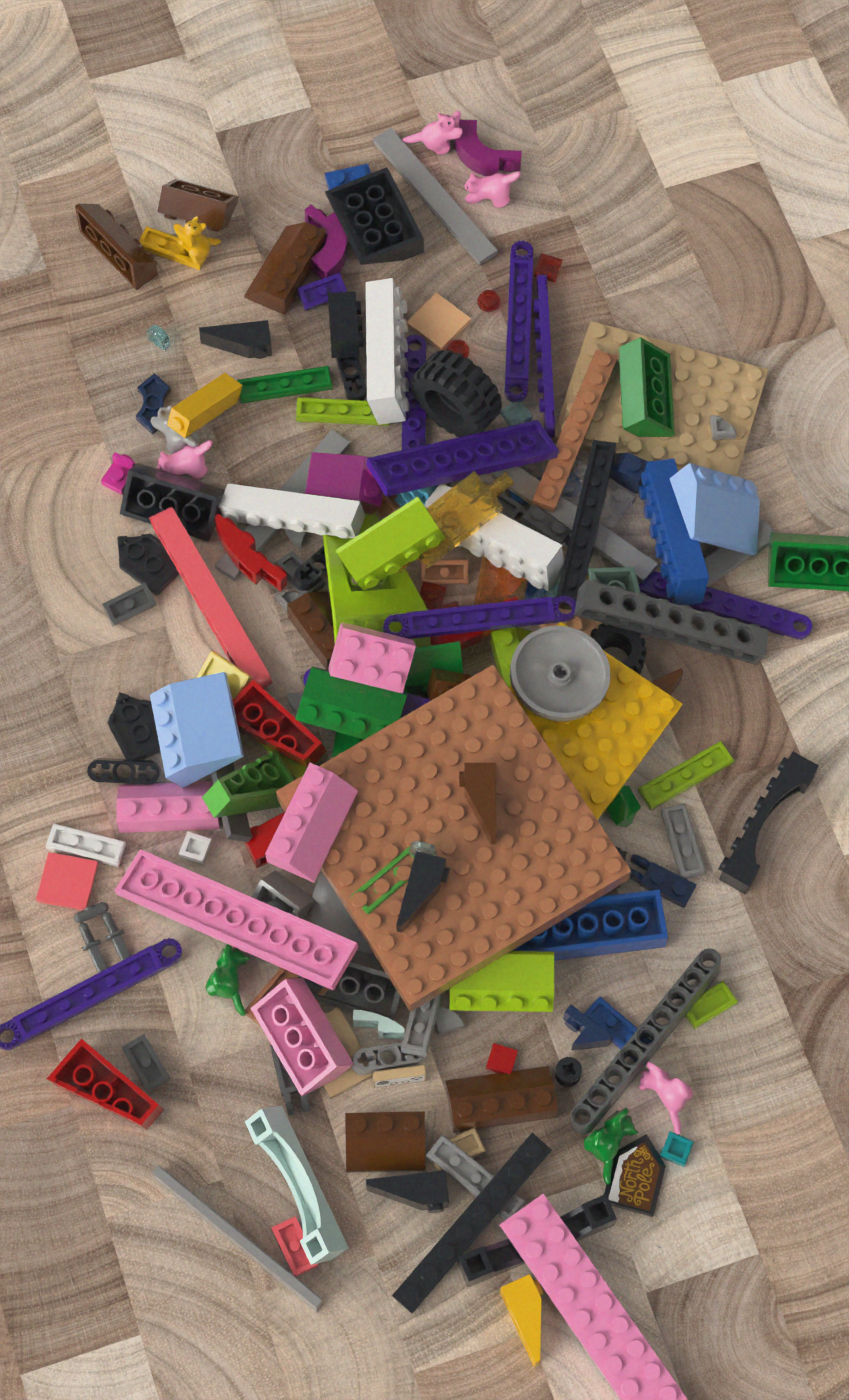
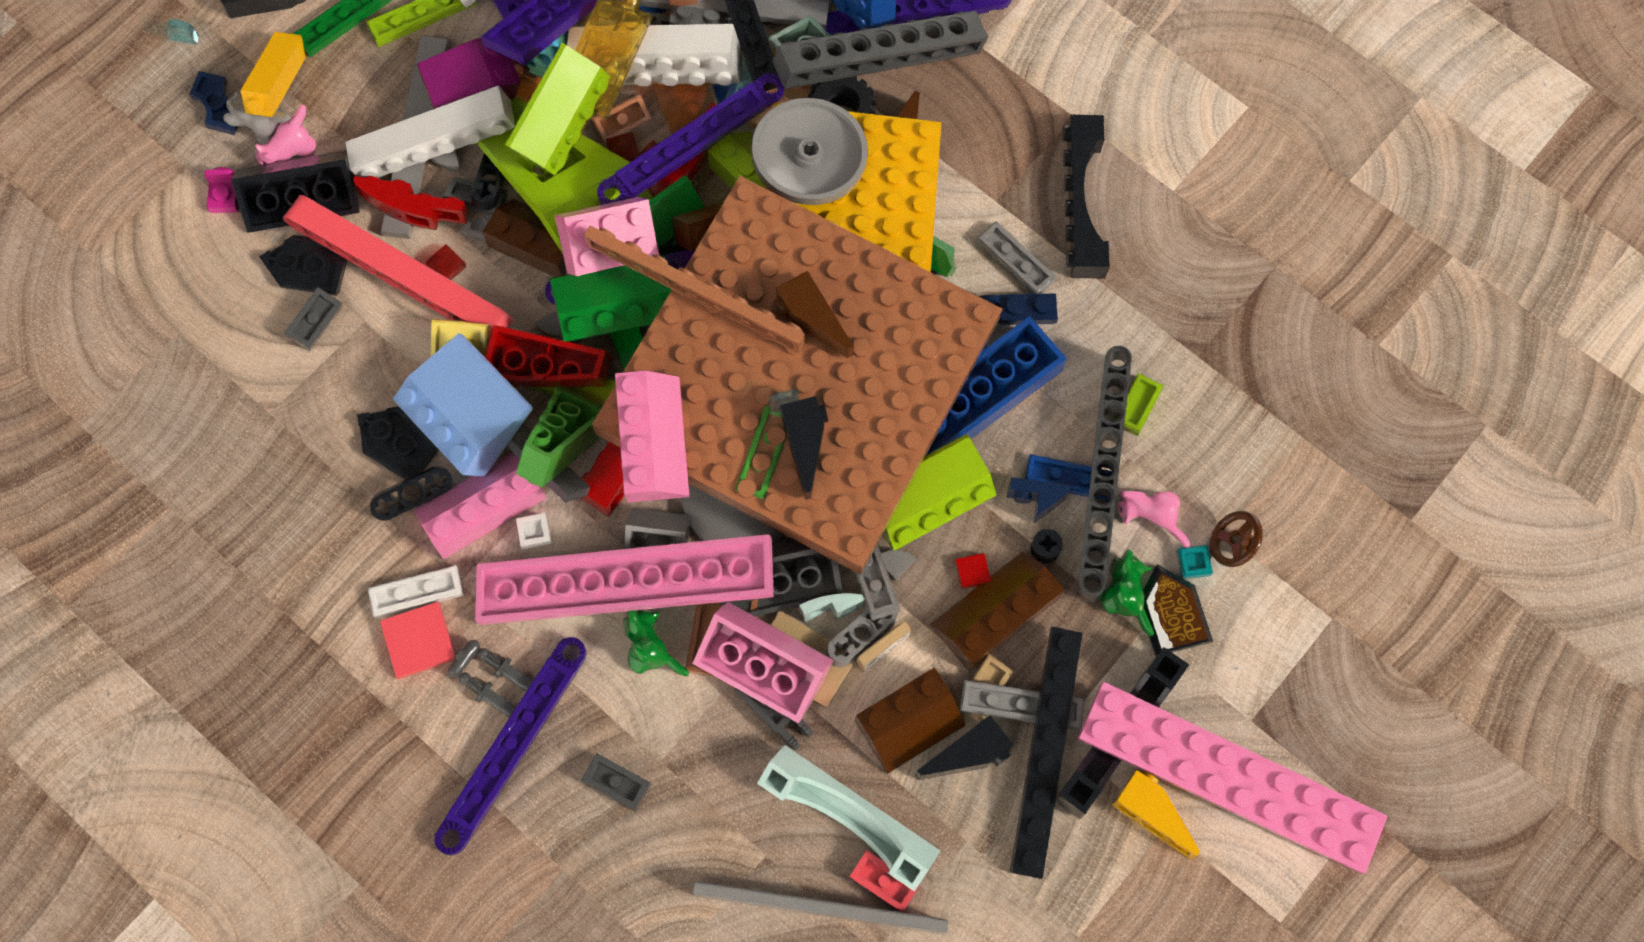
camera: 30 degrees left, 5 degrees up
(99, 1082) = (580, 830): red wedge -> none
(248, 613) = (446, 262): none -> clear red plate
(413, 740) = (705, 293): none -> nougat plate
(685, 775) = (979, 194): lime tile -> none
(721, 1153) = (1243, 543): none -> reddish brown piece

